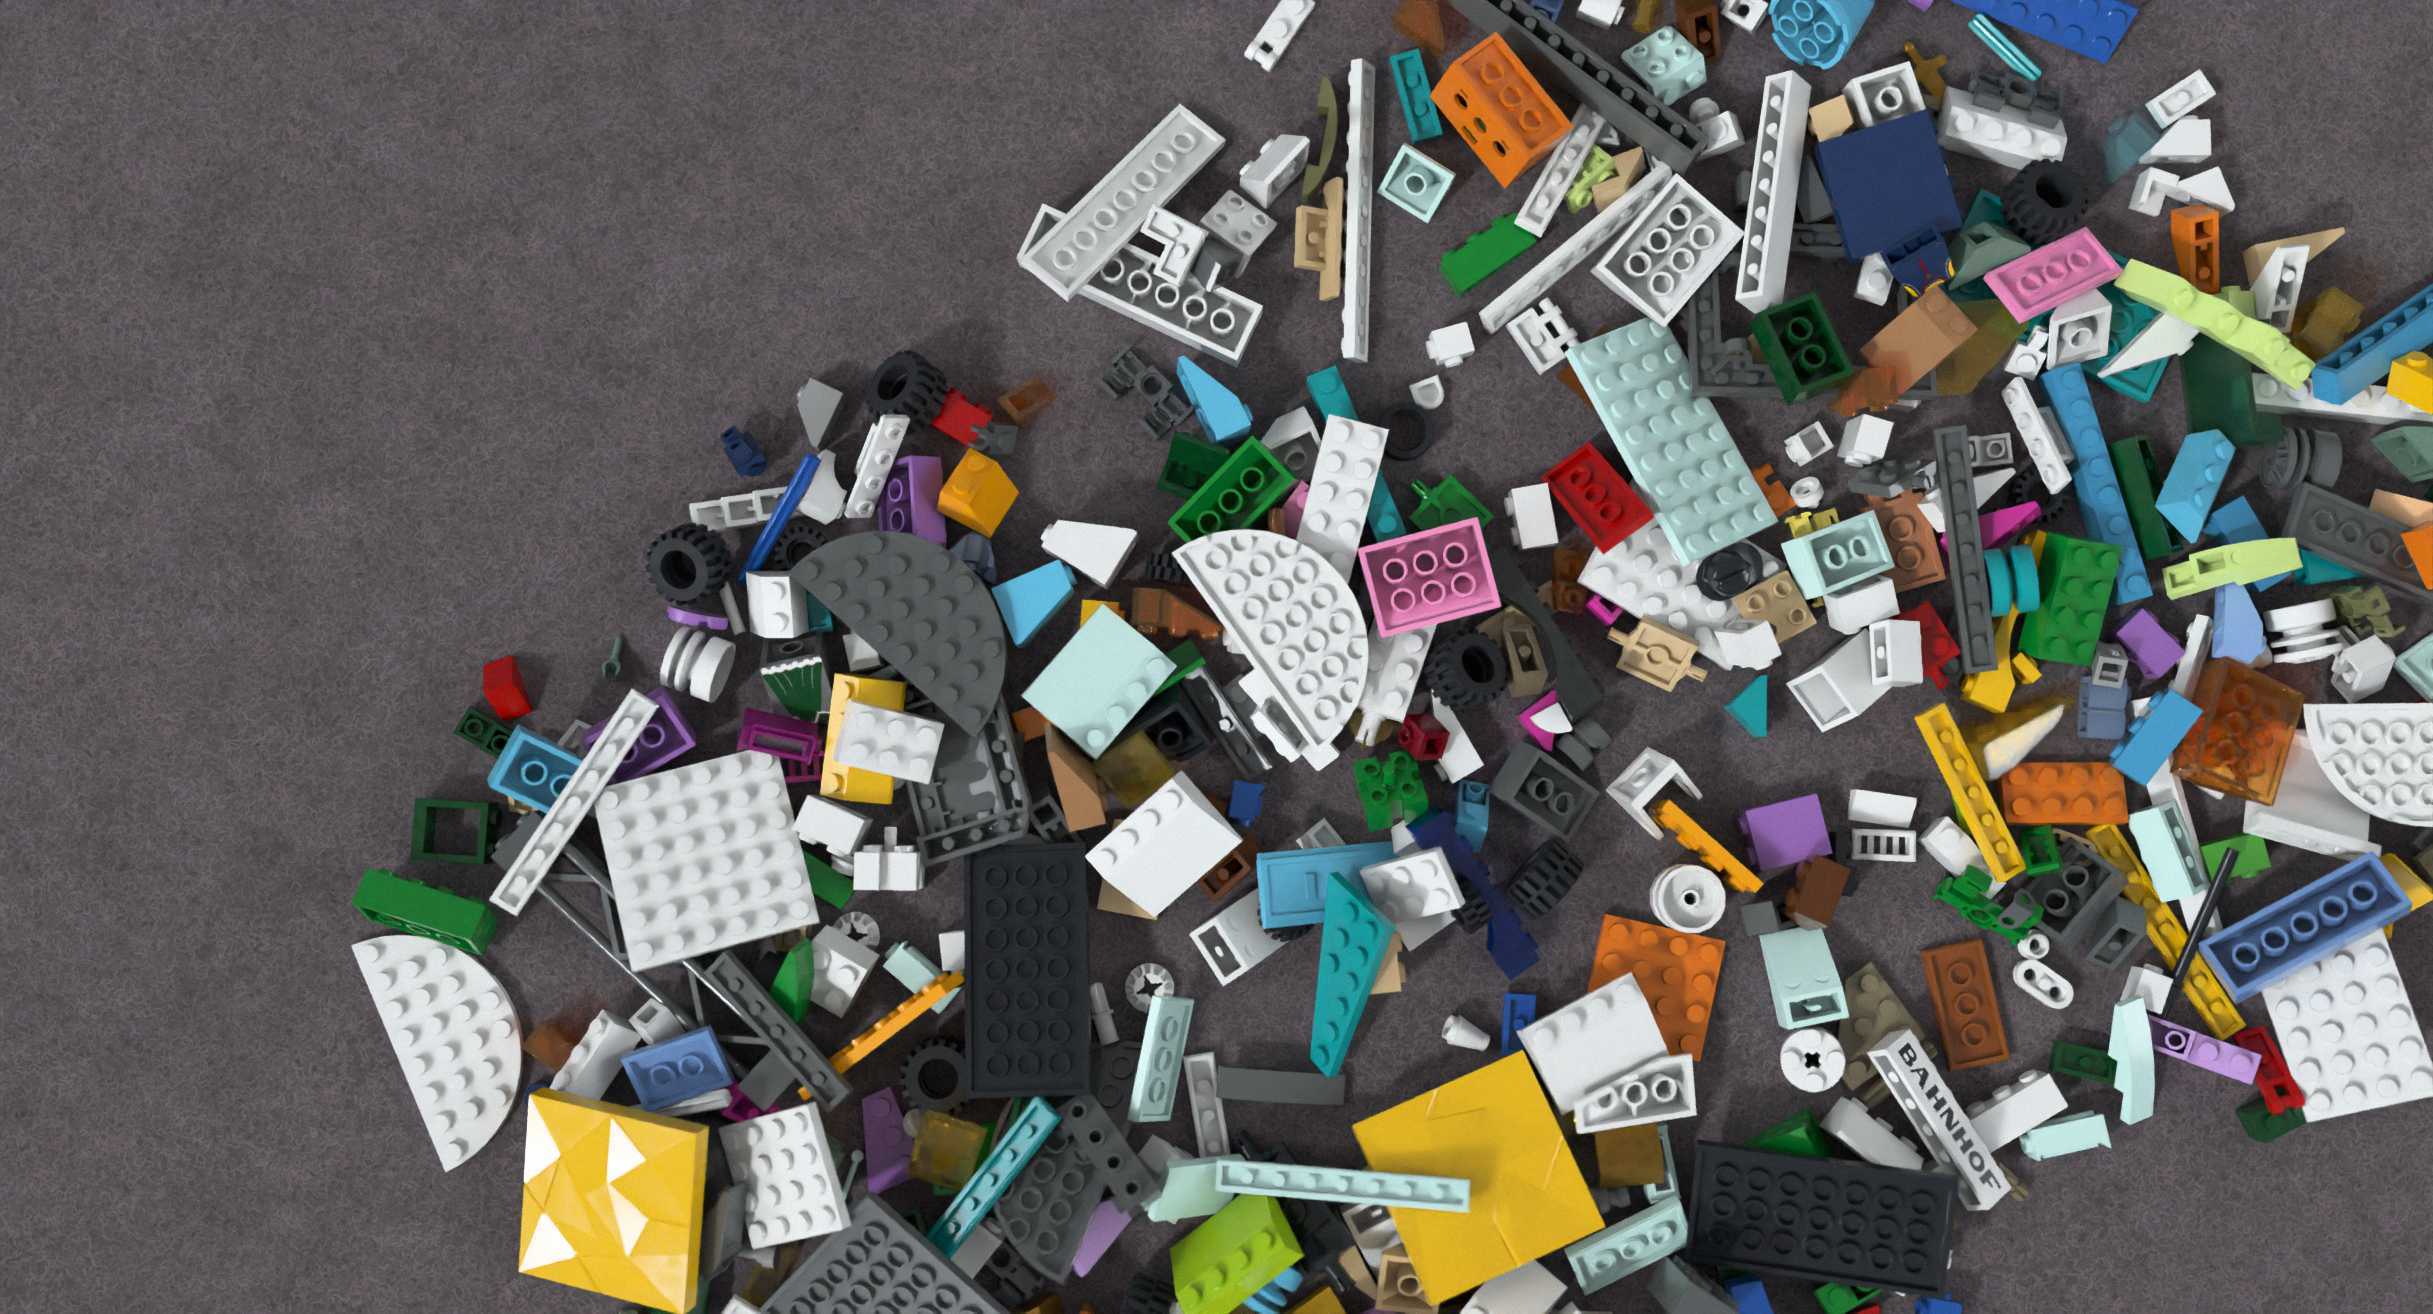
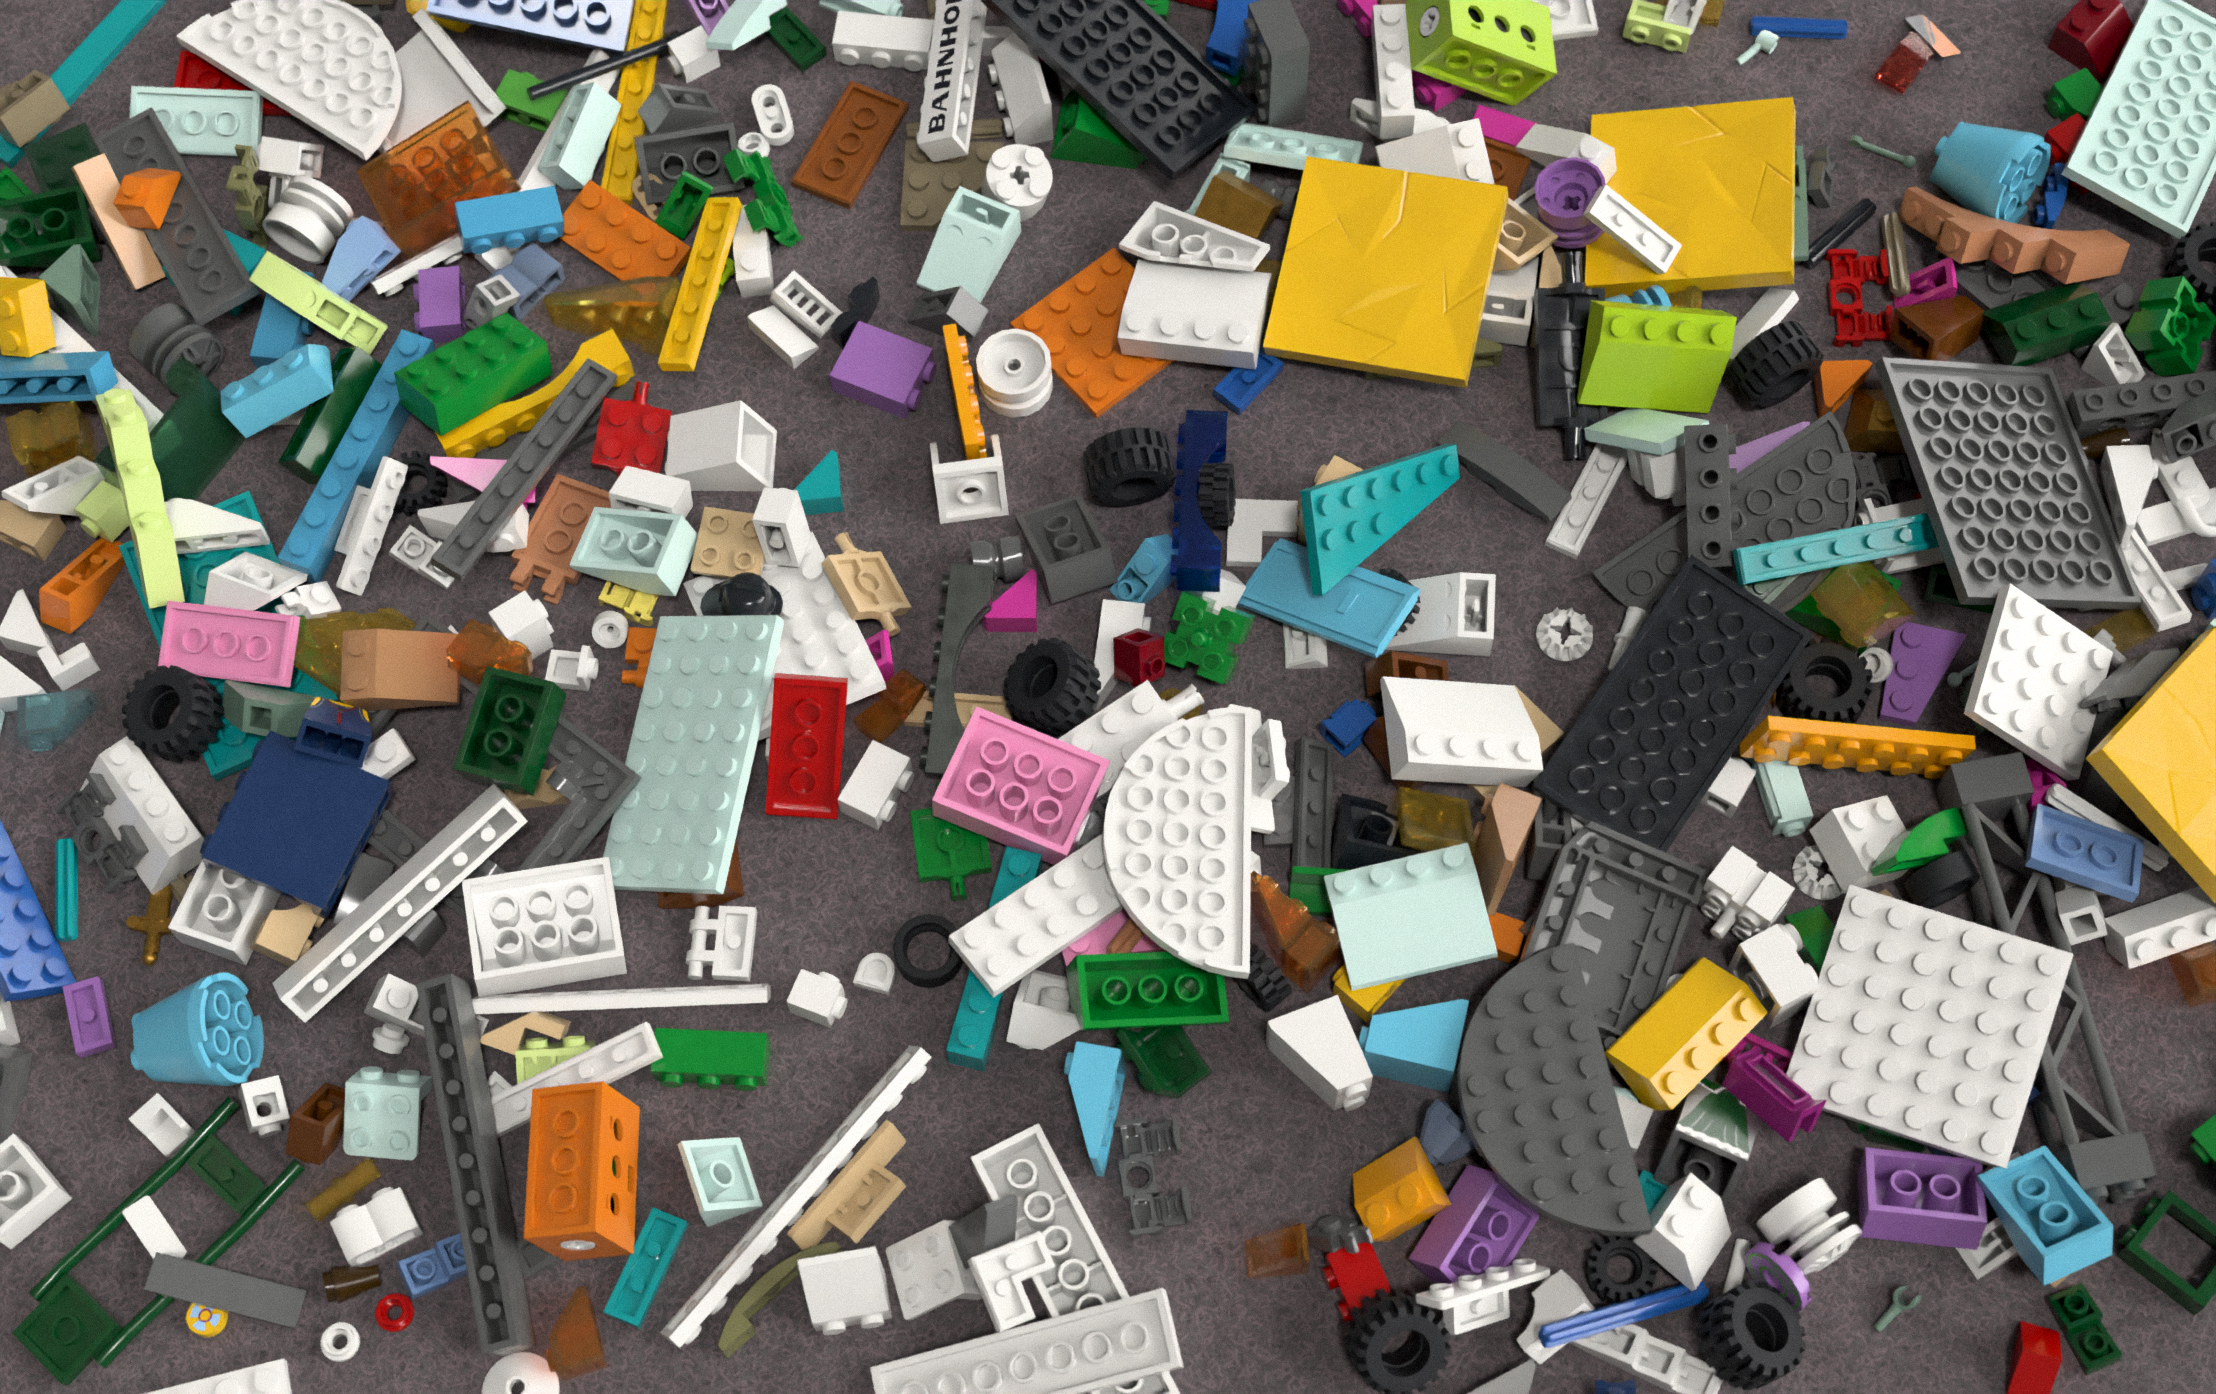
camera: 140 degrees left, 20 degrees down
(574, 802) = (2029, 1163): white tile -> none
(778, 1031) = (1958, 808): dark grey plate -> none
(888, 741) = (1663, 1000): white brick -> none
(1160, 1059) = (1599, 559): light aqua tile -> none
(1343, 1185) = (1513, 335): light aqua tile -> none
(1413, 886) = (1254, 534): white plate -> none
(1463, 1033) = (1304, 405): white cone -> none
(1524, 659) = (989, 666): dark tan slope -> none
(1552, 720) = (1010, 590): white tile -> none
(1816, 892) = (901, 291): reddish brown slope -> none
(1894, 476) = (529, 567): dark grey plate -> none
(1896, 653) = (661, 430): white brick -> none
(2011, 580) = (510, 412): teal wheel -> none
(2017, 910) = (744, 167): dark grey piece -> none
(2024, 667) = (560, 353): yellow plate -> none

